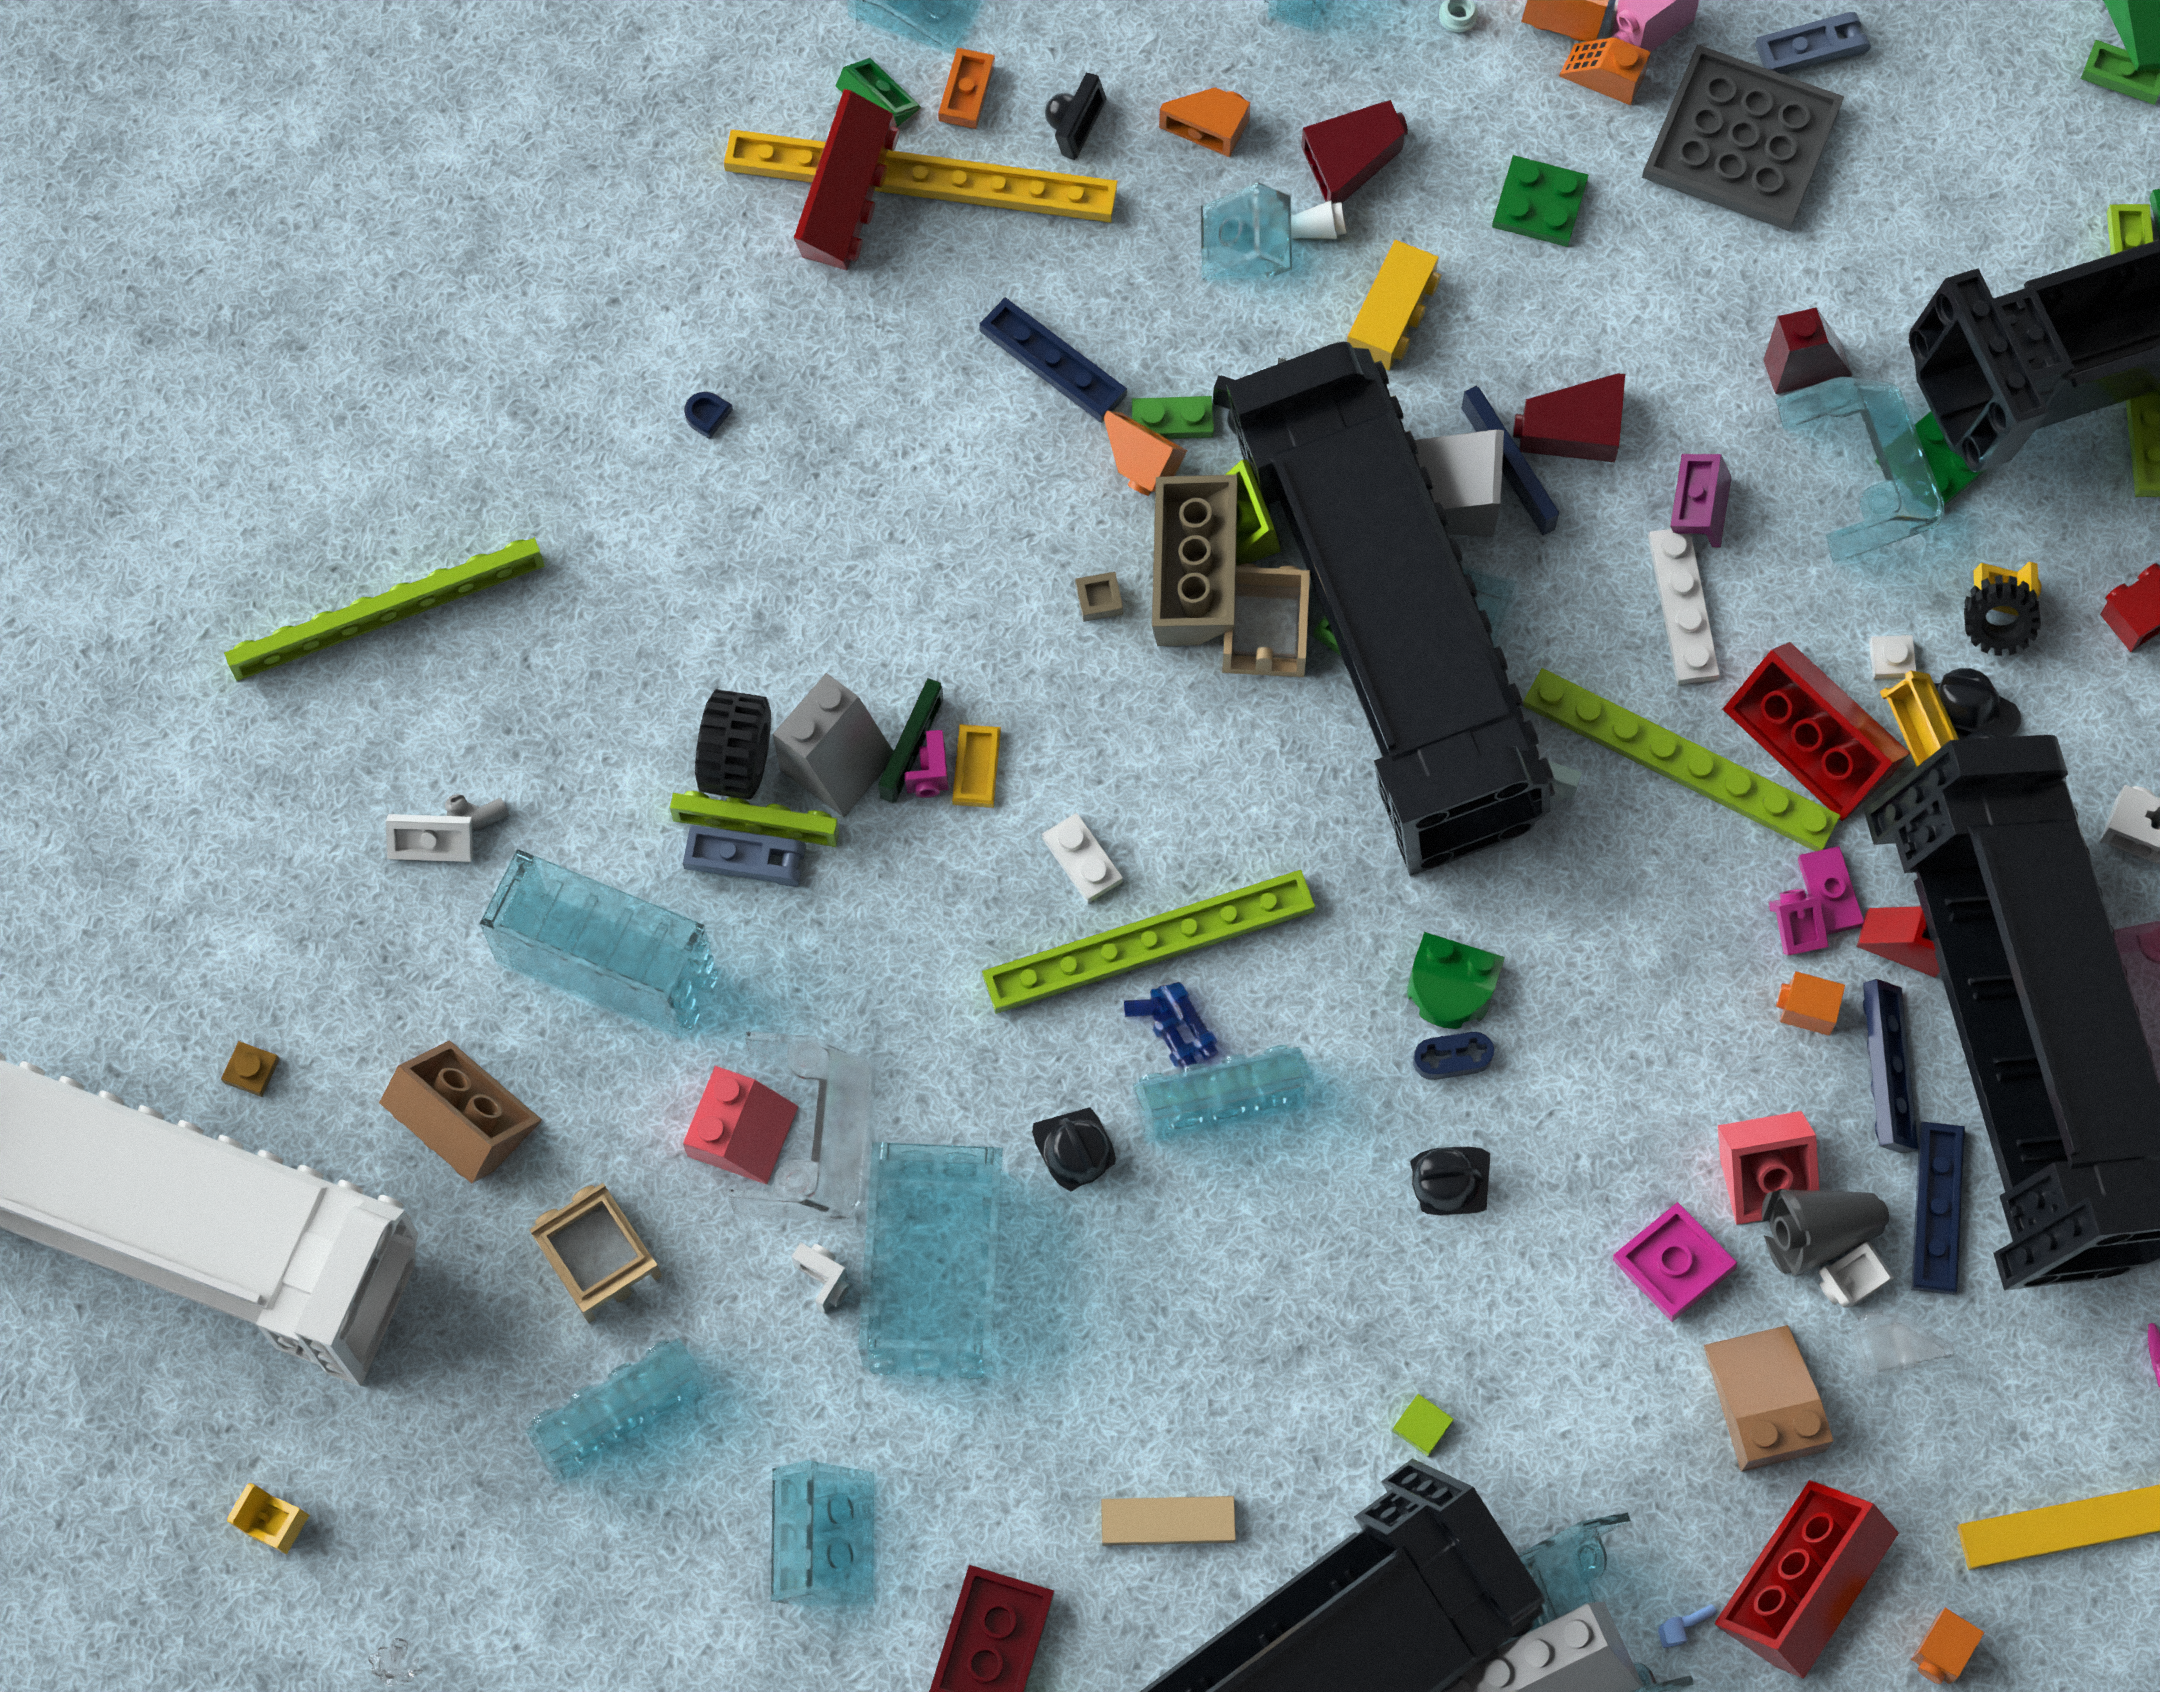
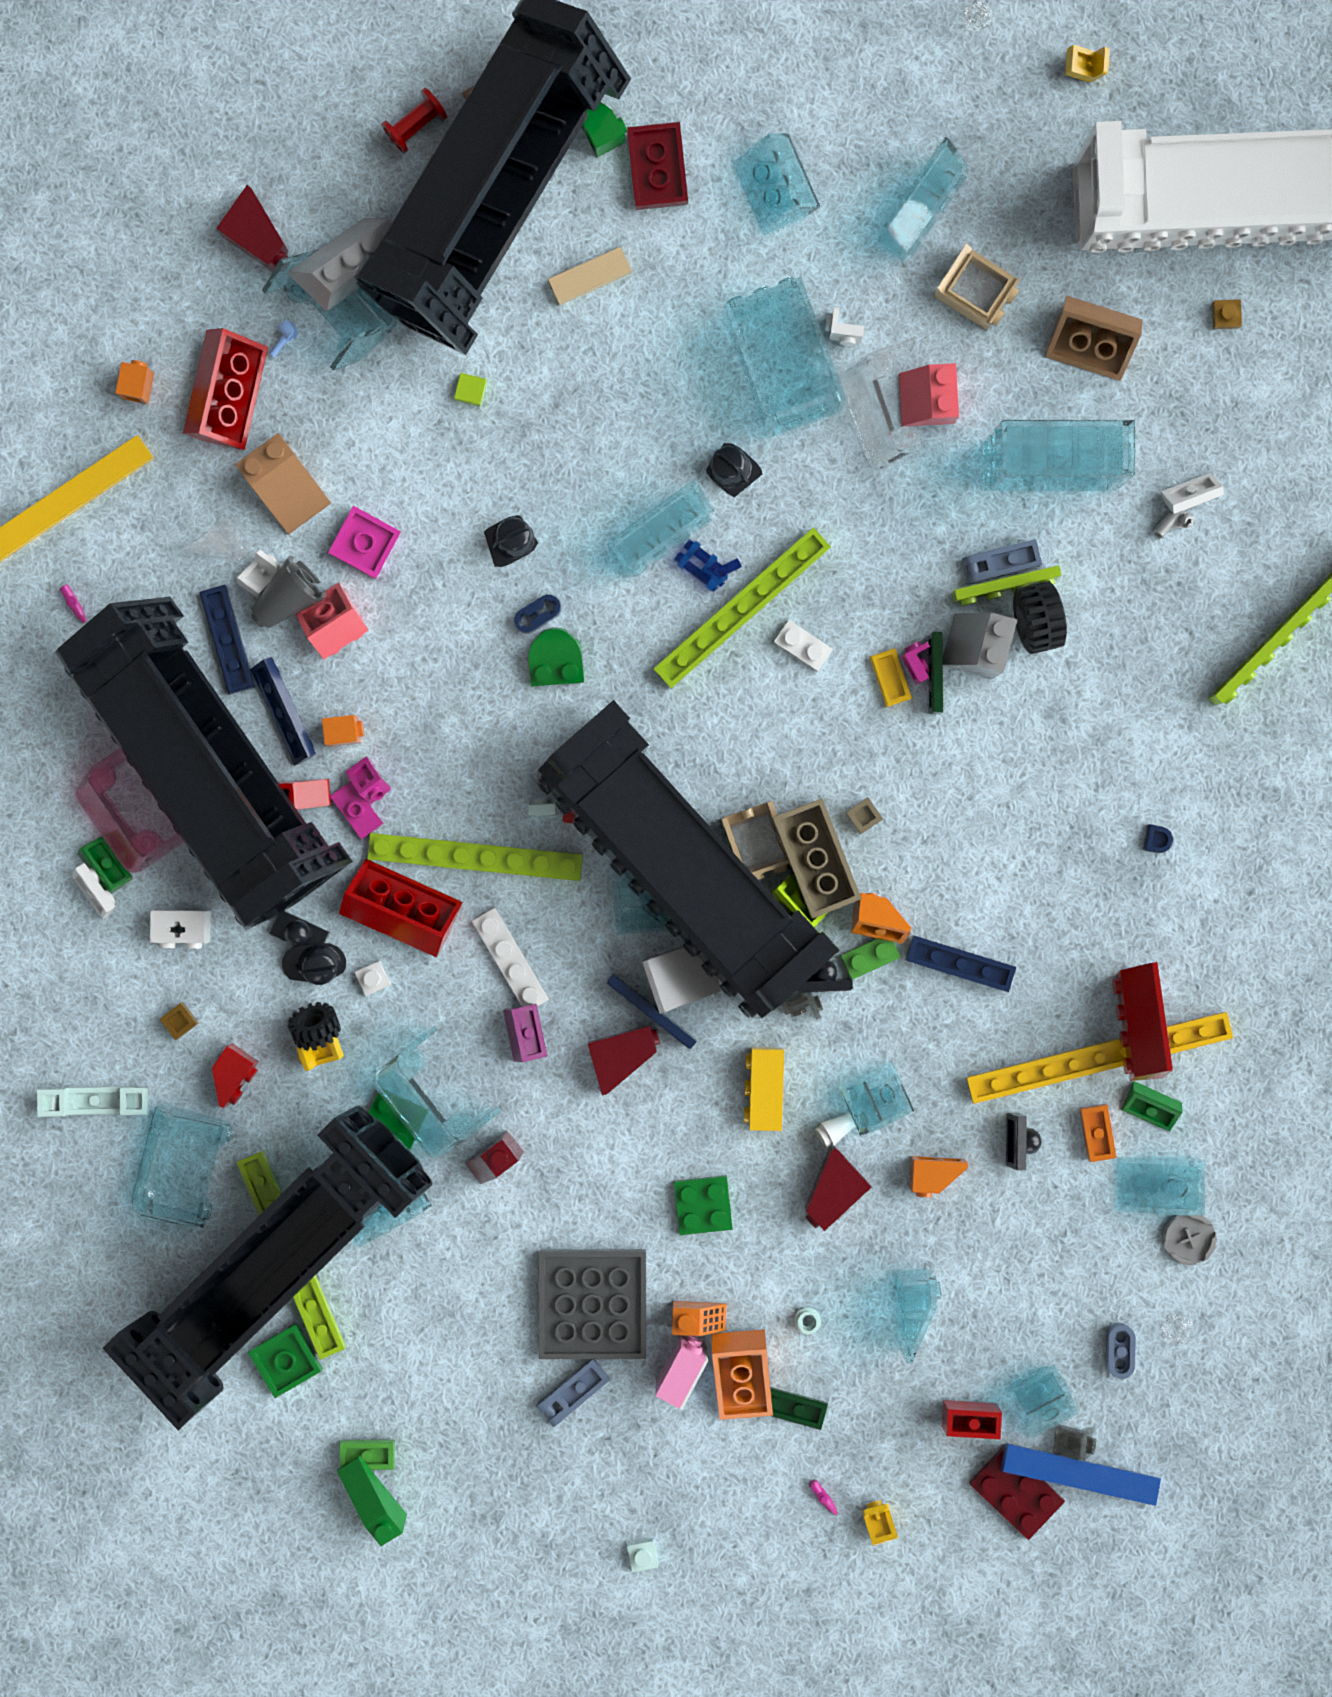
camera: 155 degrees right, 20 degrees up
(1920, 715) = (331, 929): yellow container -> none

